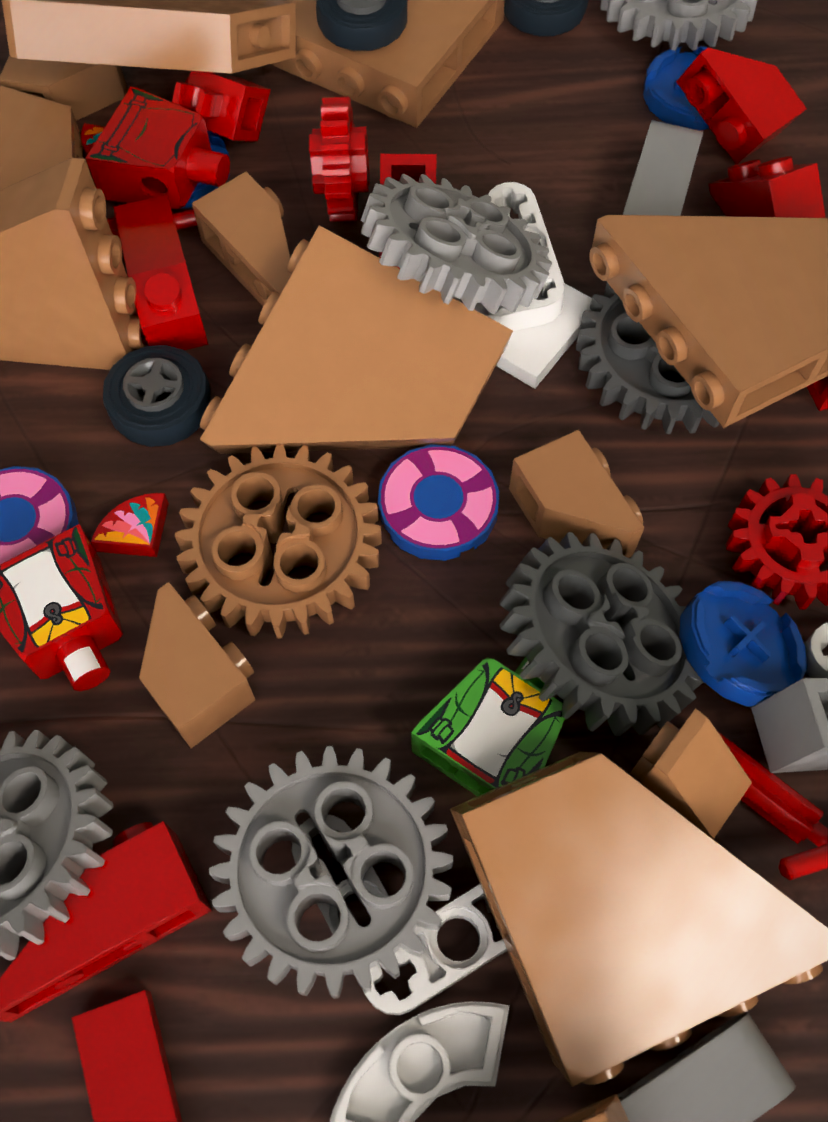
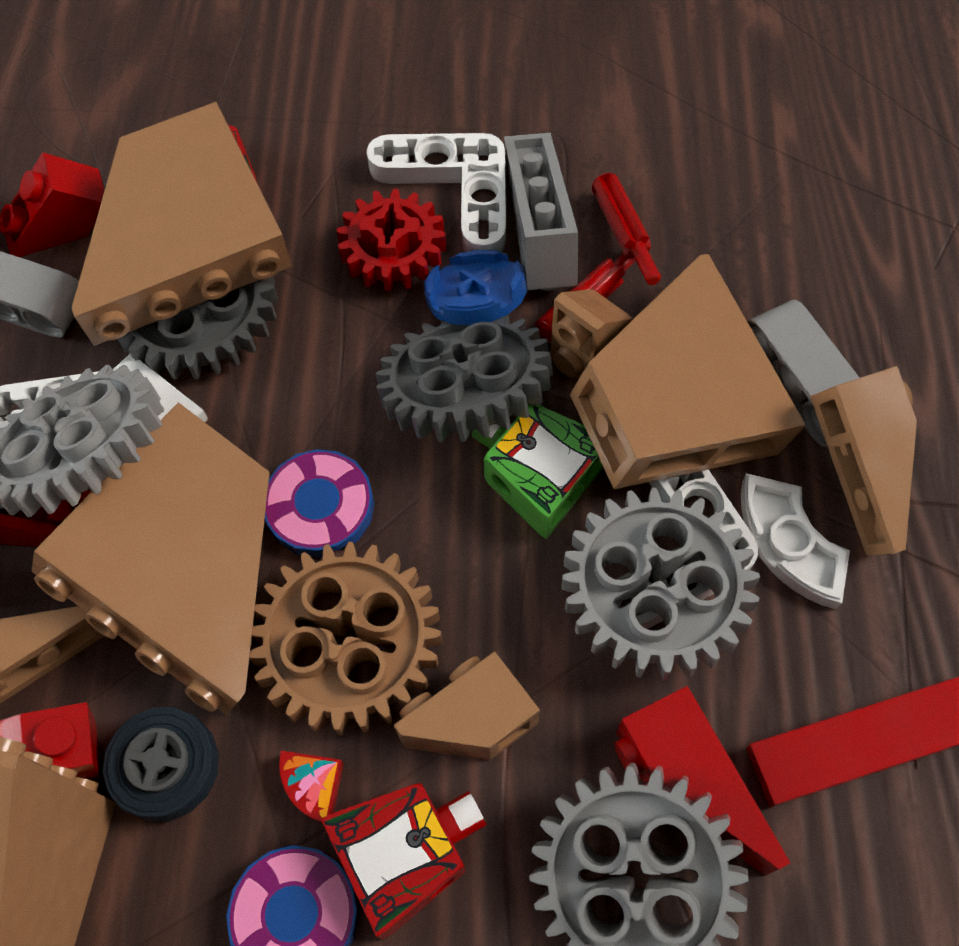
camera: 85 degrees left, 0 degrees up
(571, 490) = (334, 388): medium nougat slope -> none

